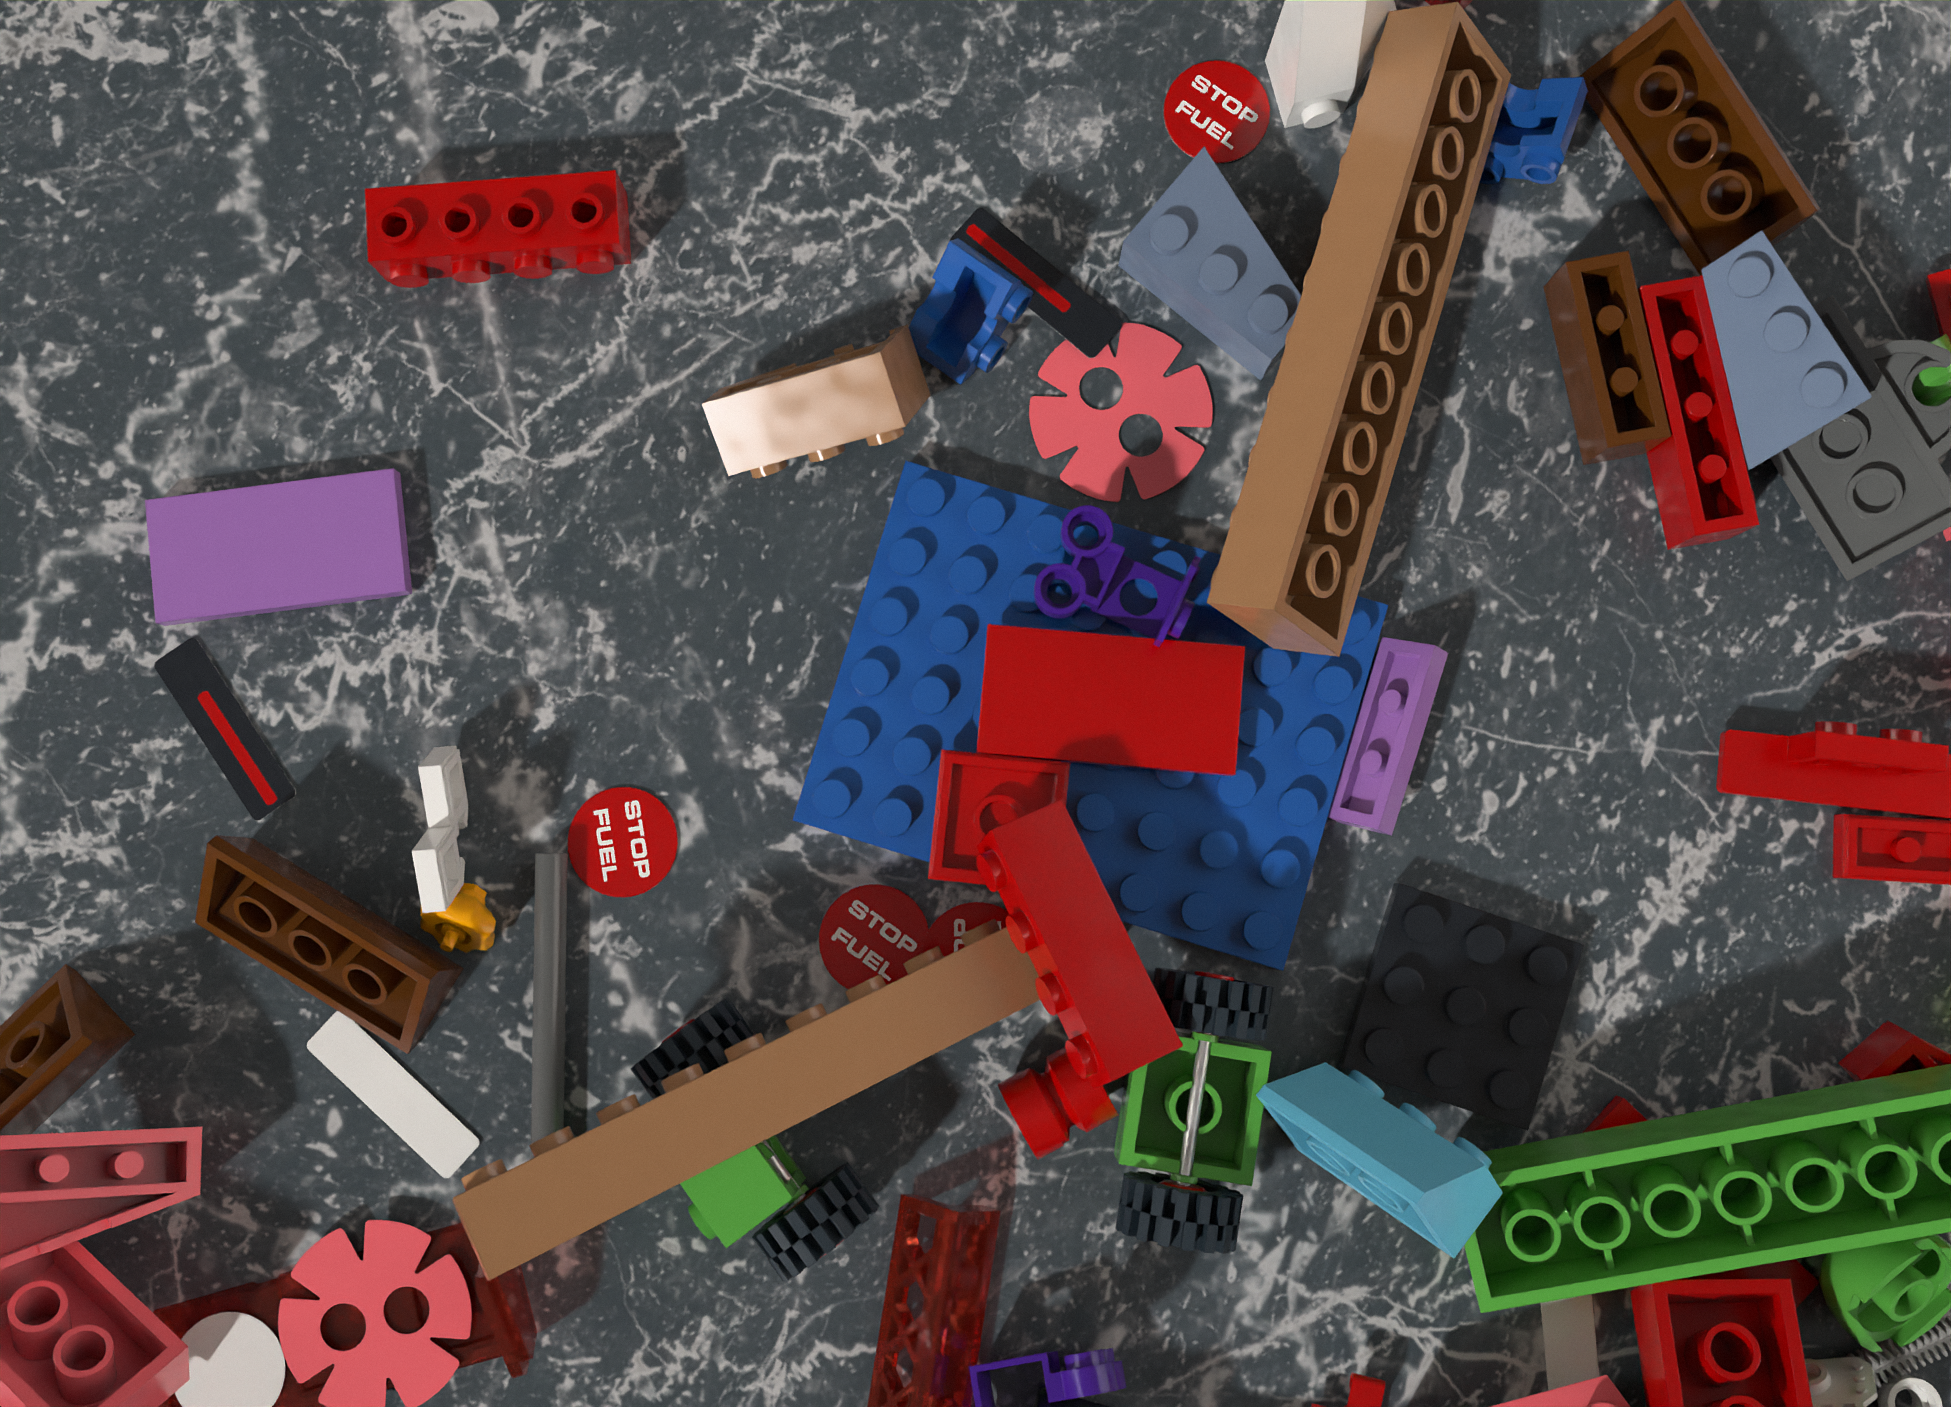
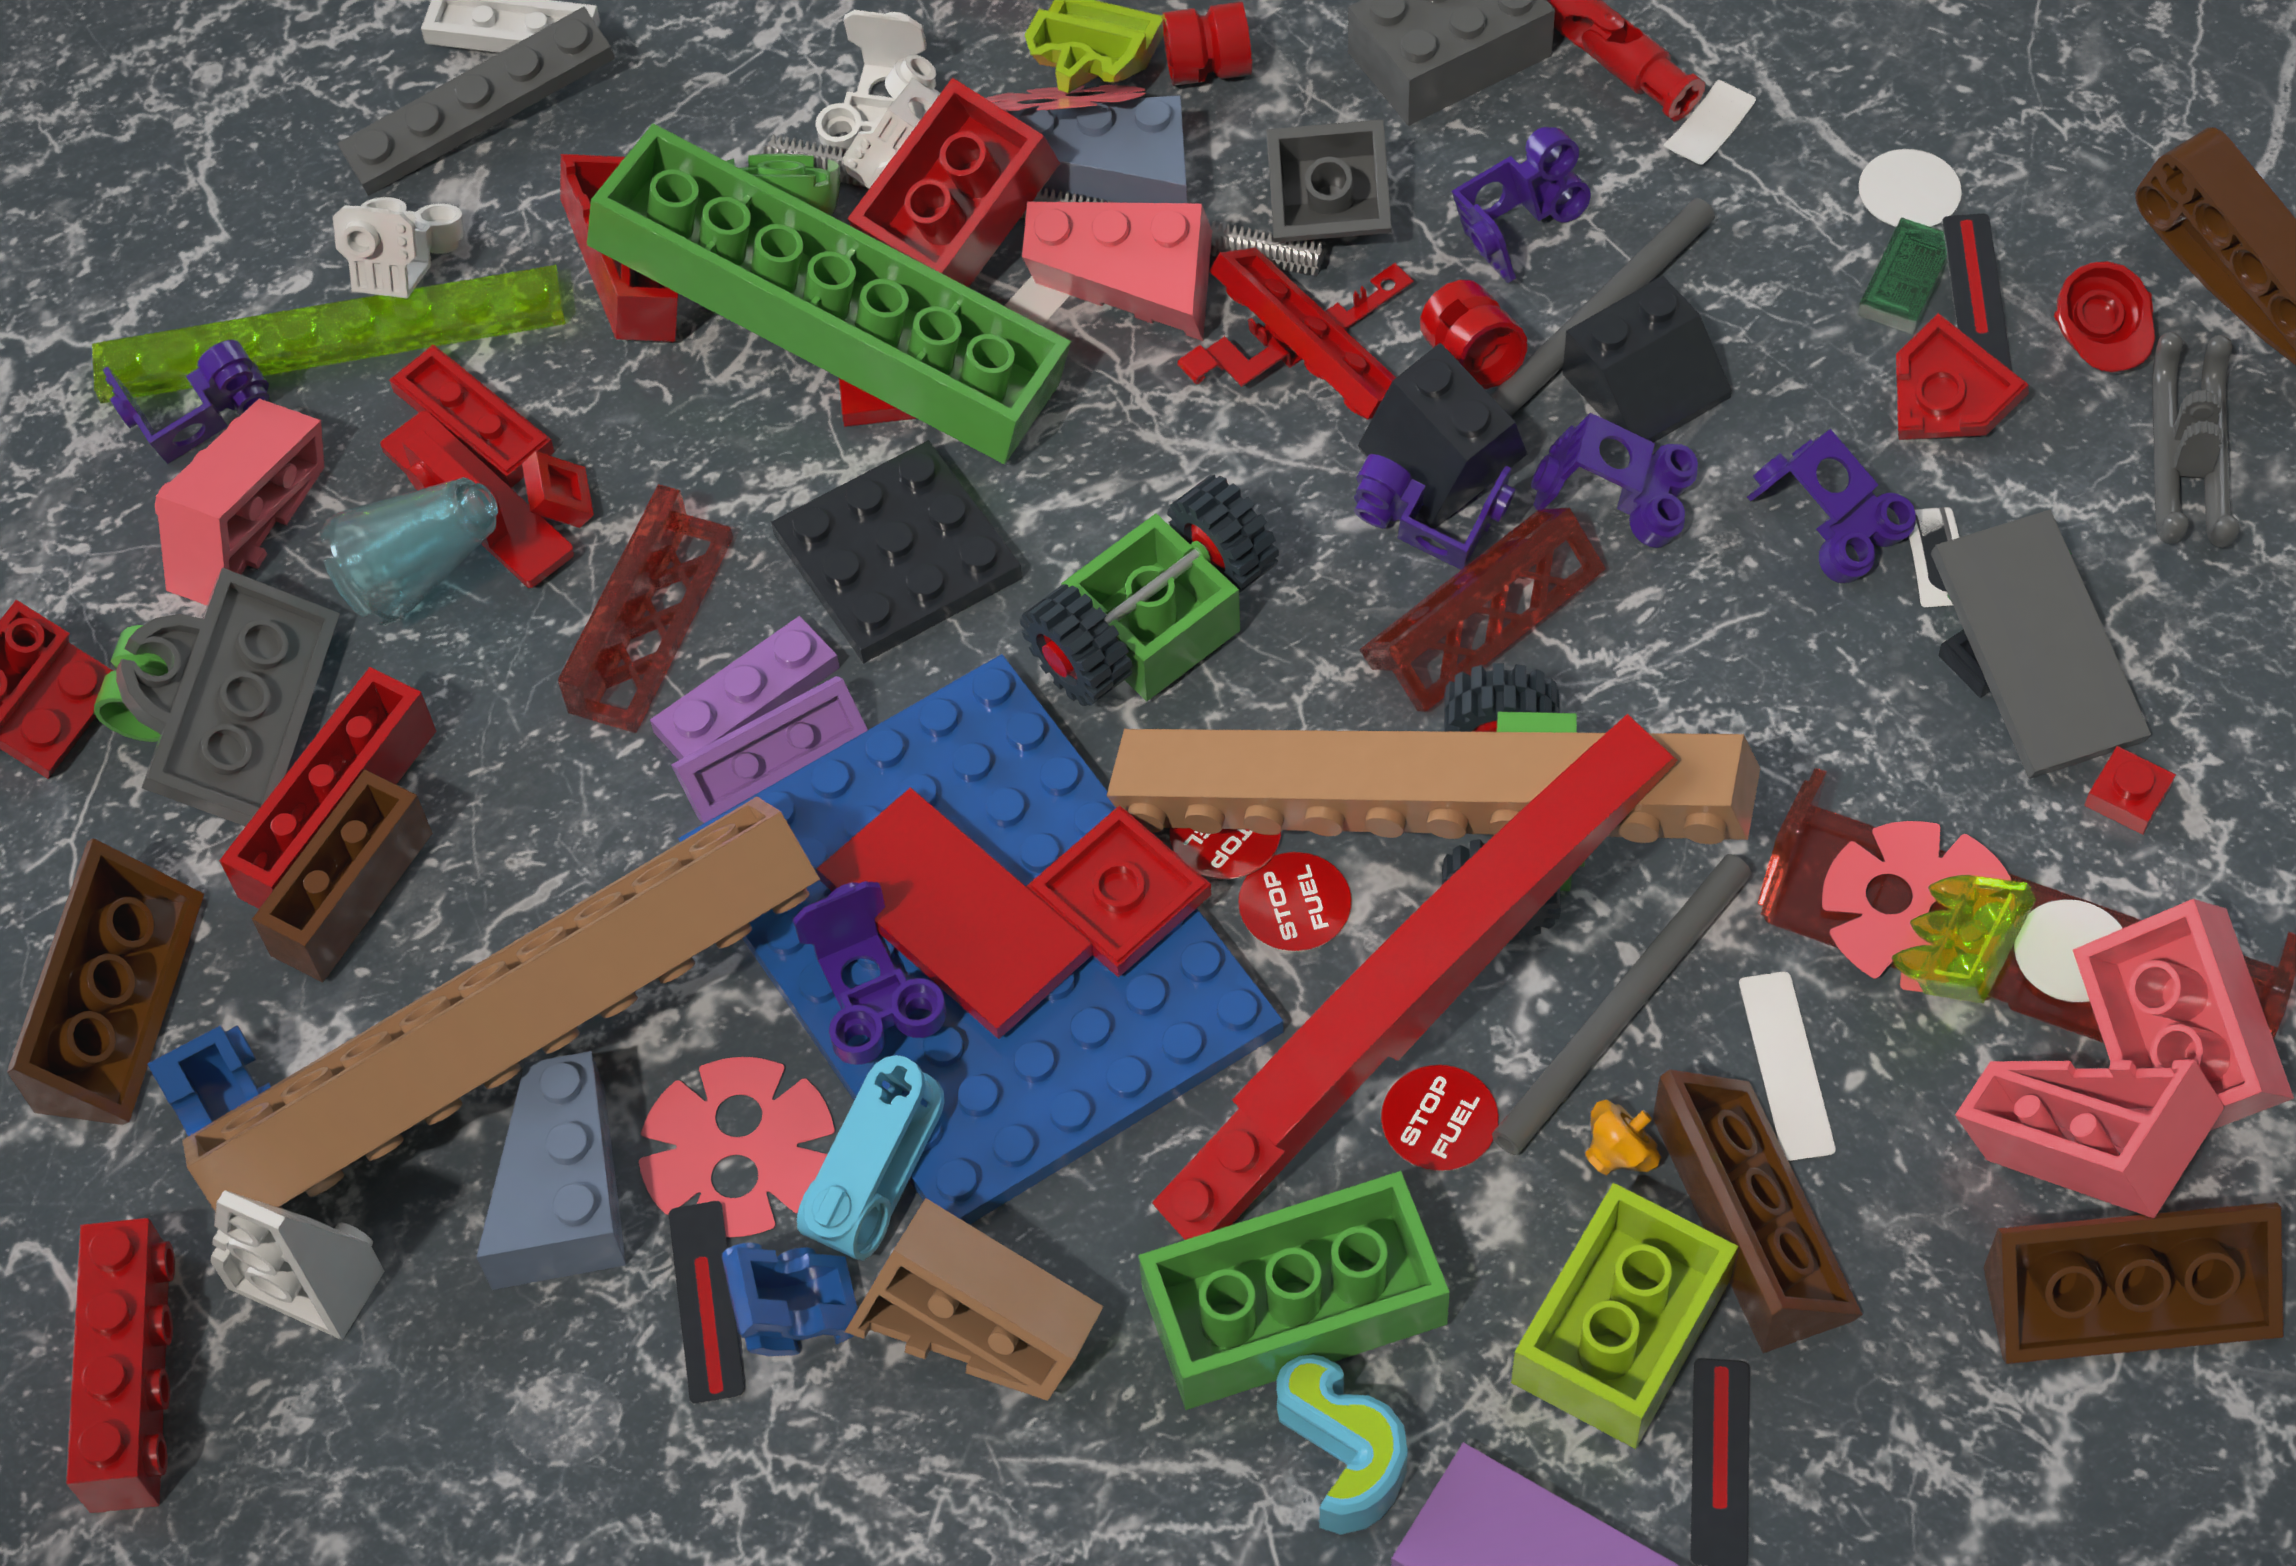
camera: 140 degrees left, 25 degrees down
(299, 1307) = (1969, 938): none -> clear neon green plate
(343, 765) = (1623, 1315): none -> lime brick
(446, 806) = (1594, 1175): white tile -> none
(489, 535) = (1351, 1429): none -> medium azure animal
(601, 597) = (1294, 1284): none -> bright green brick
(651, 911) = (1413, 977): none -> red slope
(991, 452) = (871, 1159): none -> medium azure piece
(1053, 1102) = (1248, 680): red wheel -> none
(1076, 945) = (1136, 733): red brick -> none
(1217, 109) = (423, 1327): red sticker -> none
(1385, 1152) = (1040, 468): medium azure slope -> none
(1459, 775) = (747, 689): none -> medium lavender plate
(1628, 773) = (624, 602): none -> clear red fence
(1775, 352) = (227, 766): sand blue wedge -> none
(1787, 831) = (557, 489): none -> red plate
(1848, 650) = (405, 545): none -> clear light blue cone

